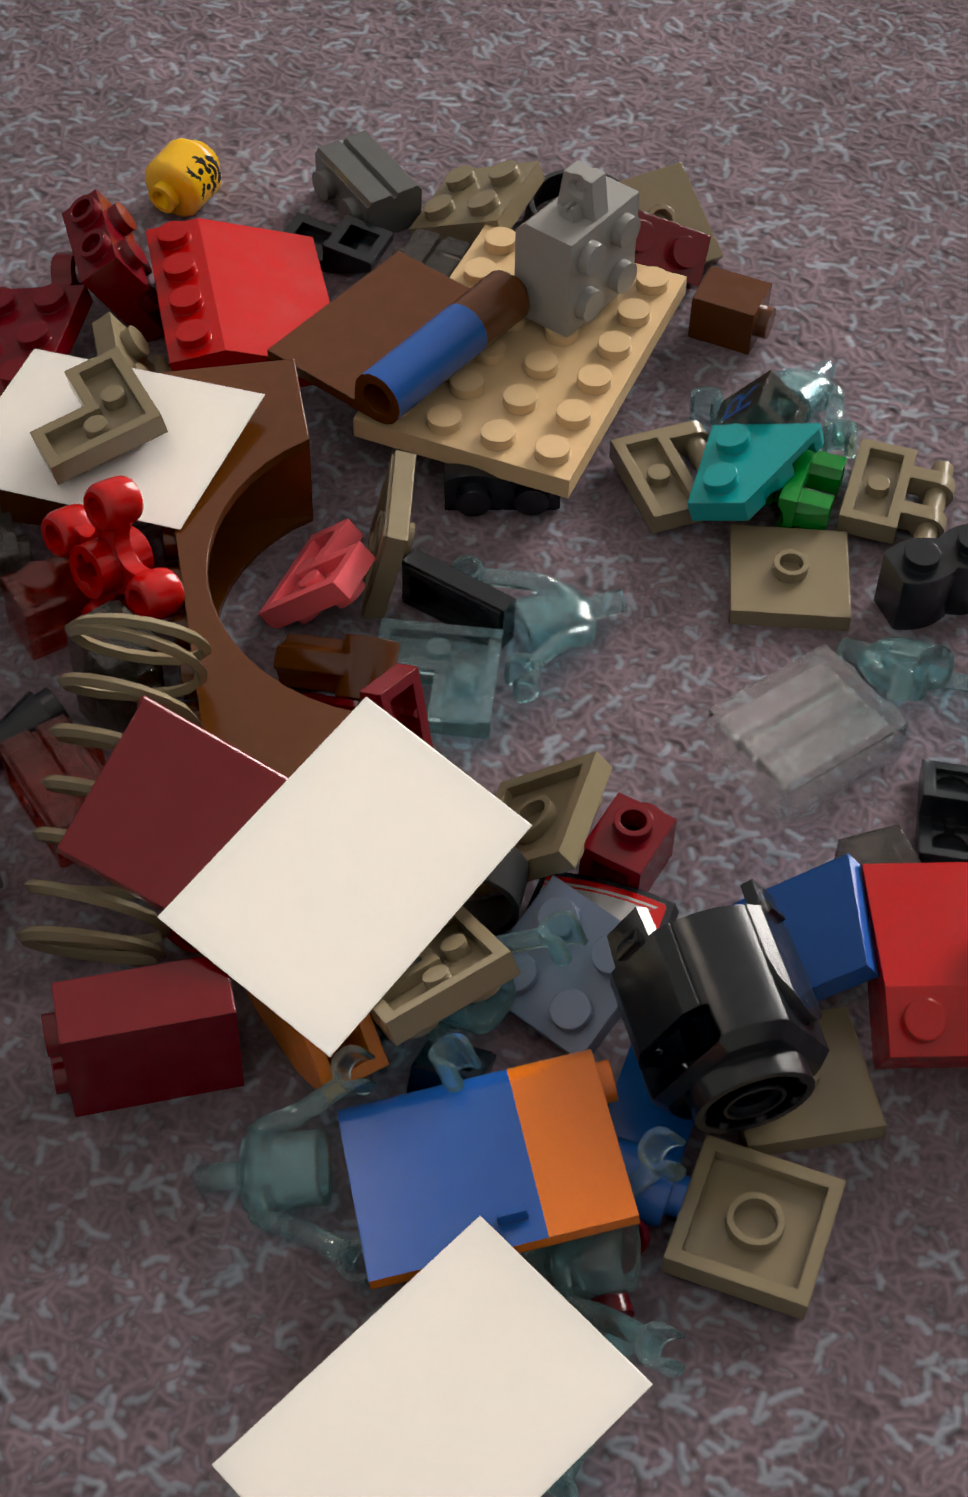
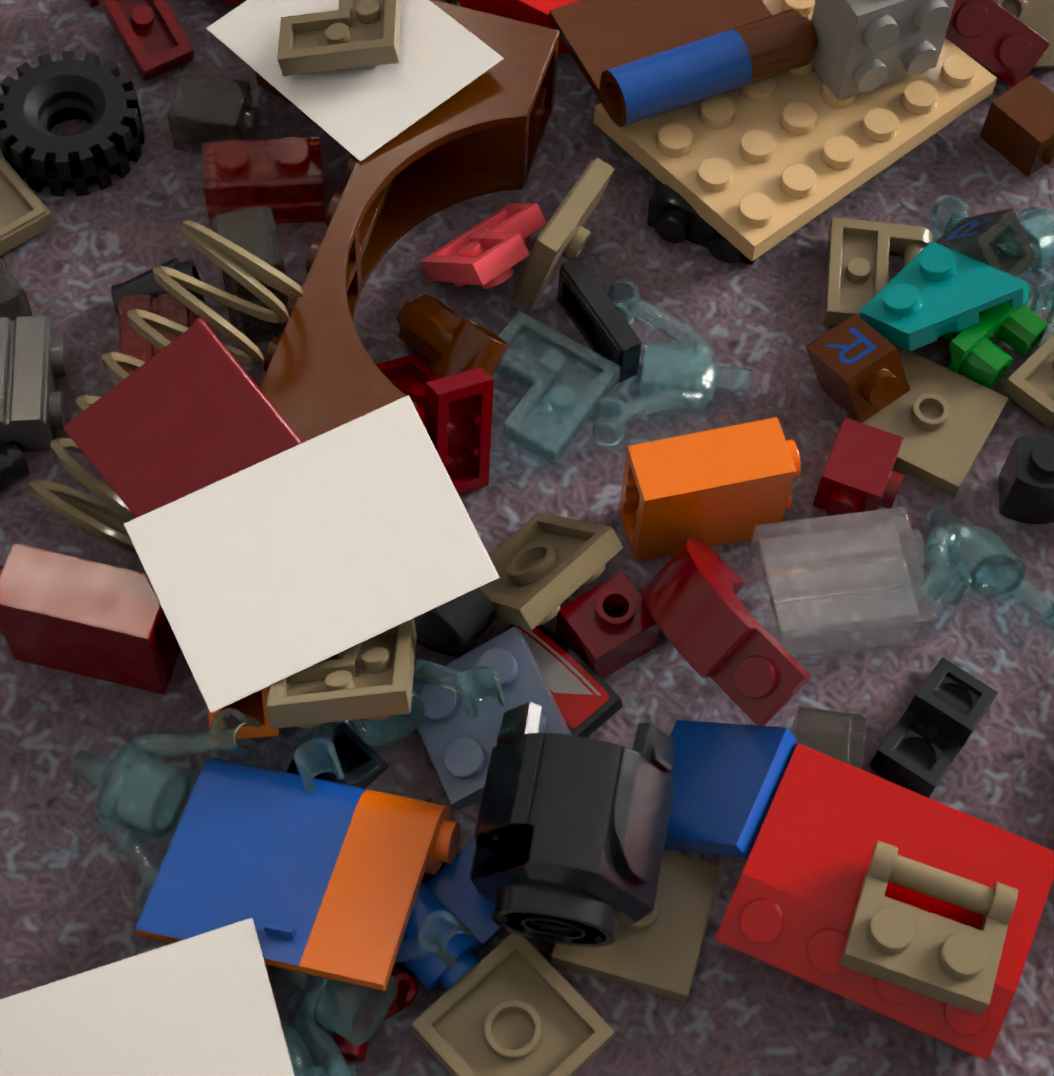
camera: 25 degrees right, 10 degrees up
(109, 554) = (289, 164): red gear -> none
(649, 693) = (706, 486): none -> orange brick
(712, 551) = (858, 368): none -> reddish brown brick
(743, 798) = (714, 632): none -> dark red arch
(762, 634) = (860, 470): none -> dark red brick

